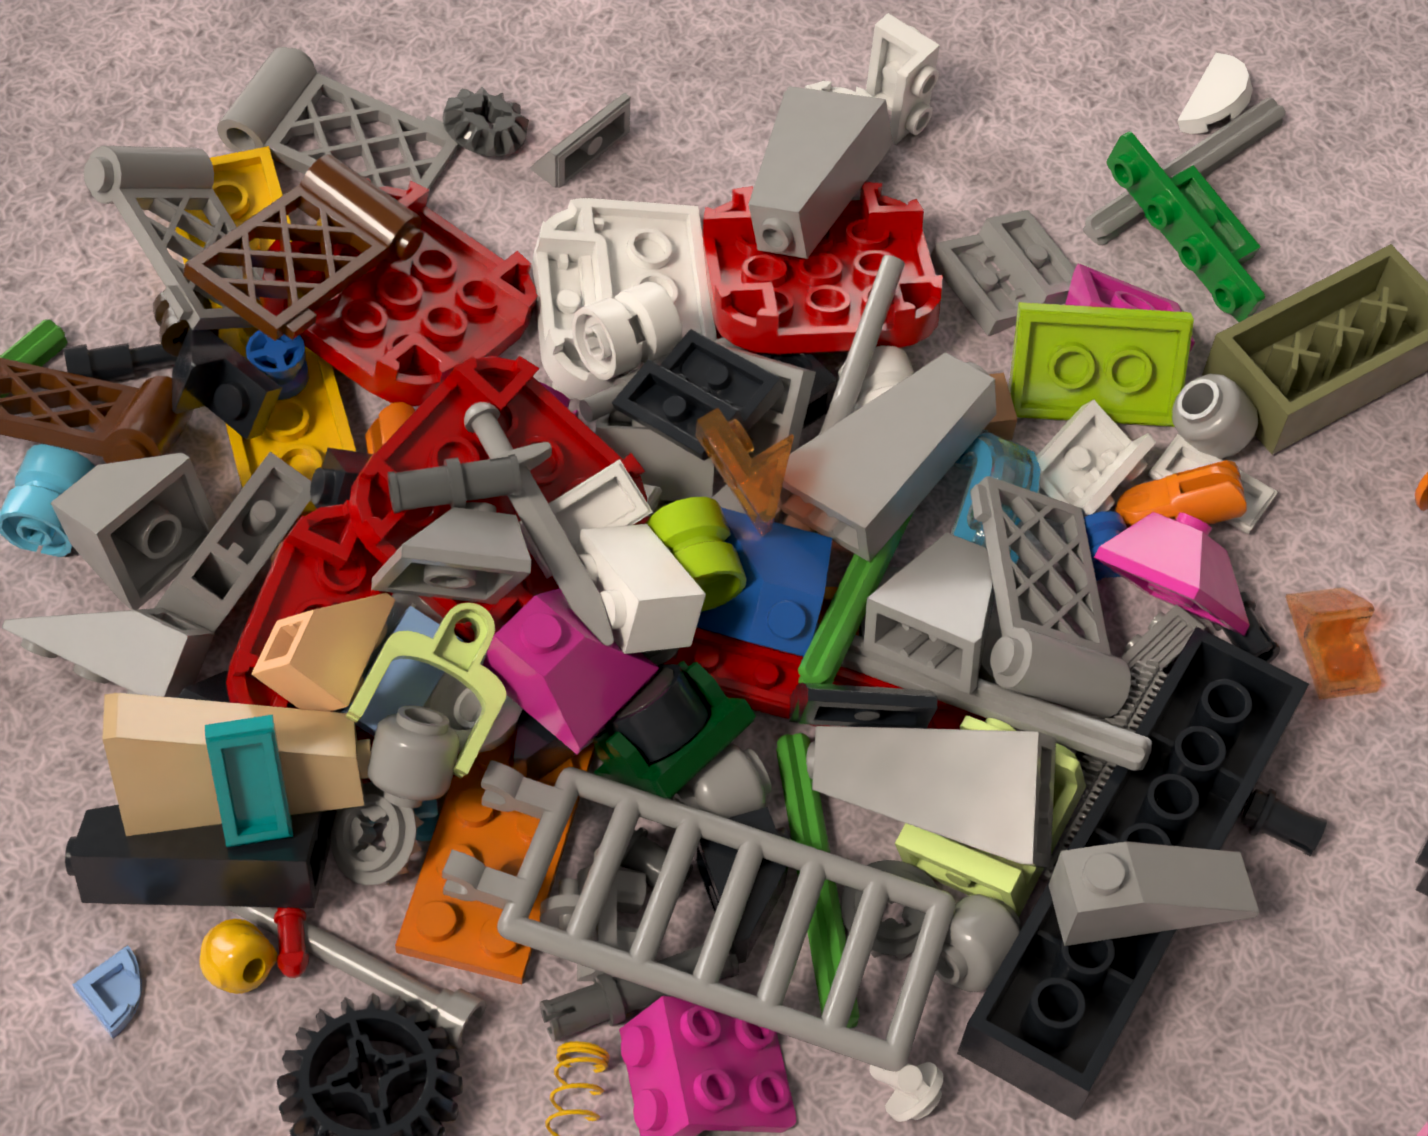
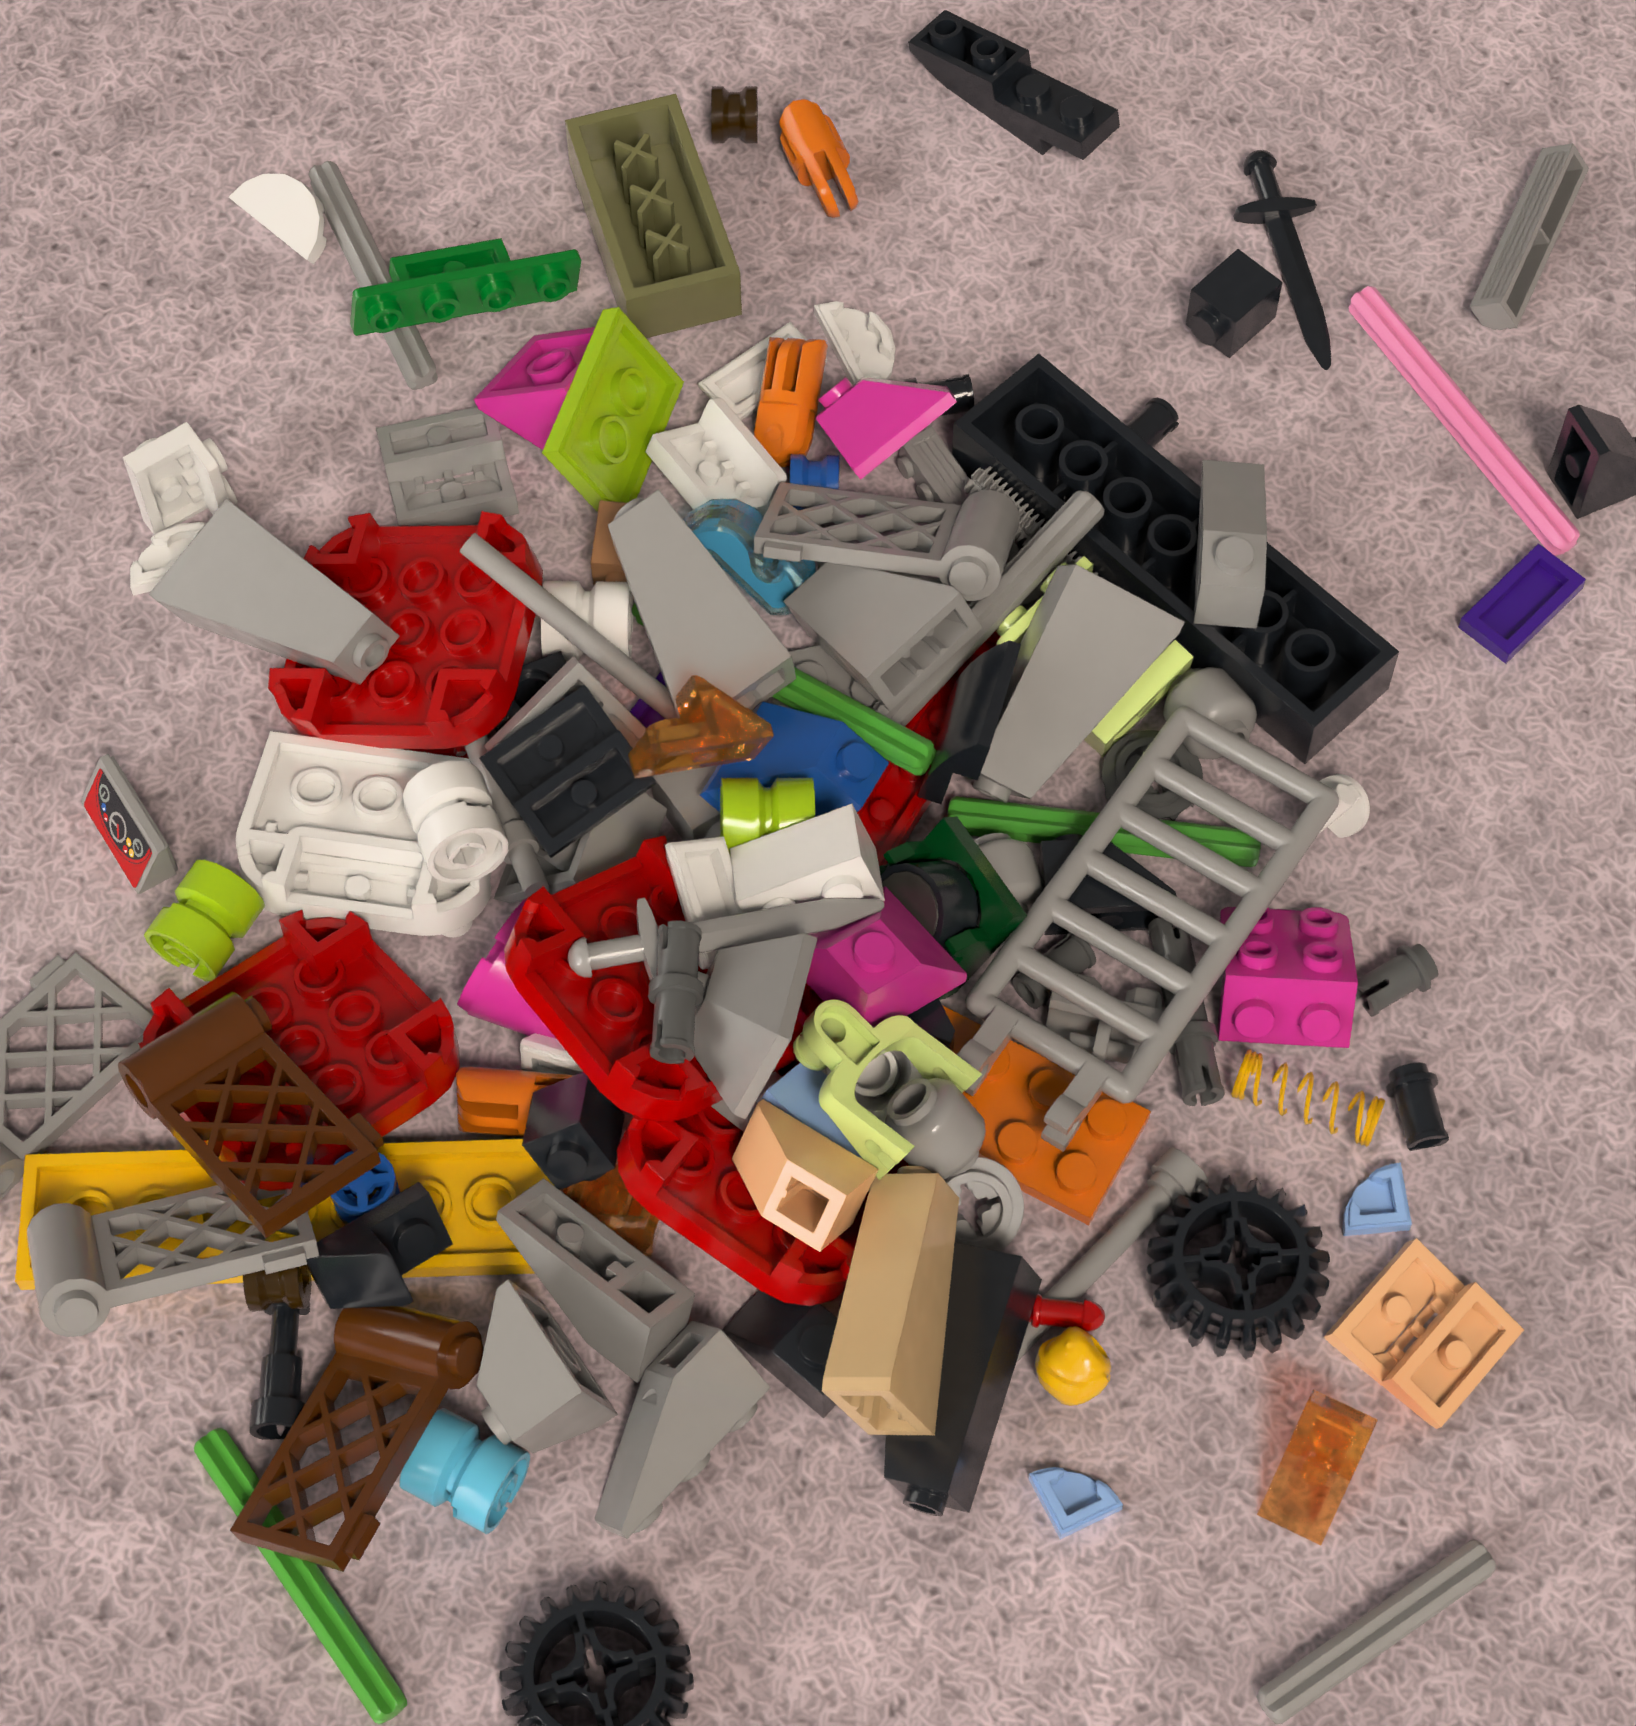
camera: 70 degrees left, 5 degrees up
(249, 780) = (942, 1276): teal tile -> none
(470, 130) = (78, 935): dark grey gear -> none
(495, 203) = (209, 913): none -> lime wheel
(1215, 416) = (681, 335): light grey head -> none
(1281, 557) = (858, 340): none -> white tile
(1334, 641) = (949, 331): clear orange slope -> none

